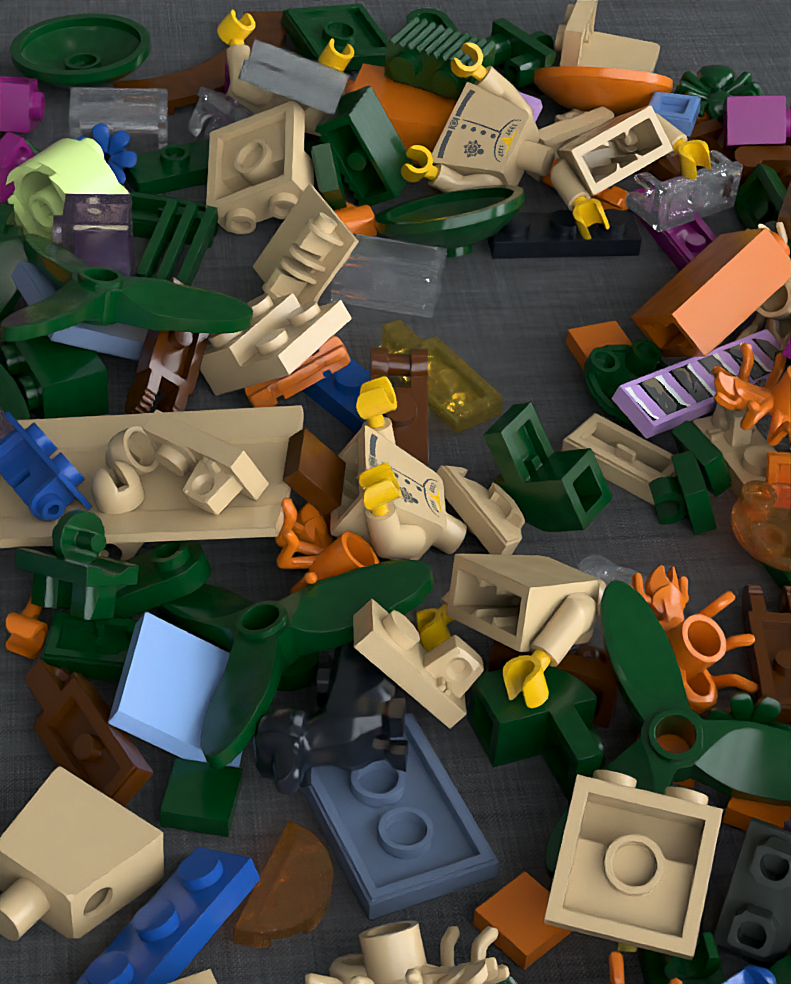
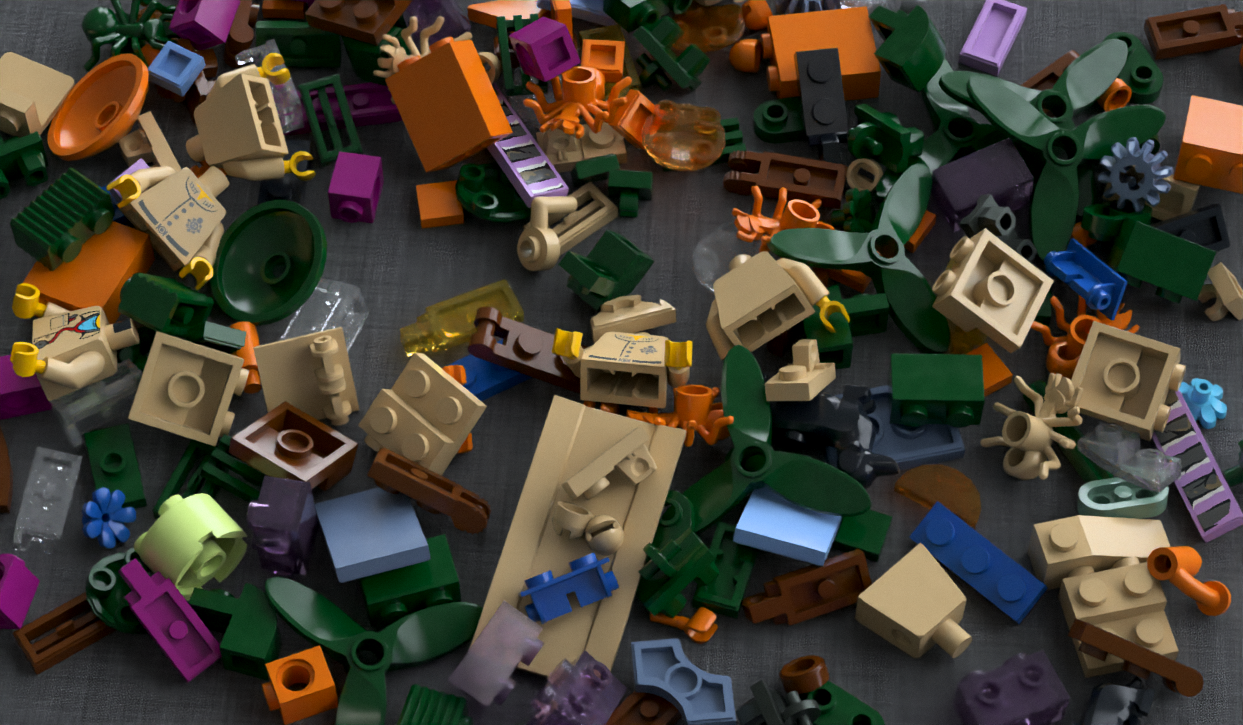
camera: 75 degrees left, 15 degrees up
(107, 297) = (405, 513): dark green piece -> none
(203, 245) = (295, 447): none -> reddish brown plate
(294, 76) = (119, 325): clear smoke slope -> none
(314, 471) = (618, 401): reddish brown tile -> none
(439, 825) = (935, 389): none -> dark green brick
(561, 417) = (539, 245): none -> tan plate
(588, 273) = (355, 187): none -> magenta brick
(676, 249) = (320, 85): none -> dark green tile

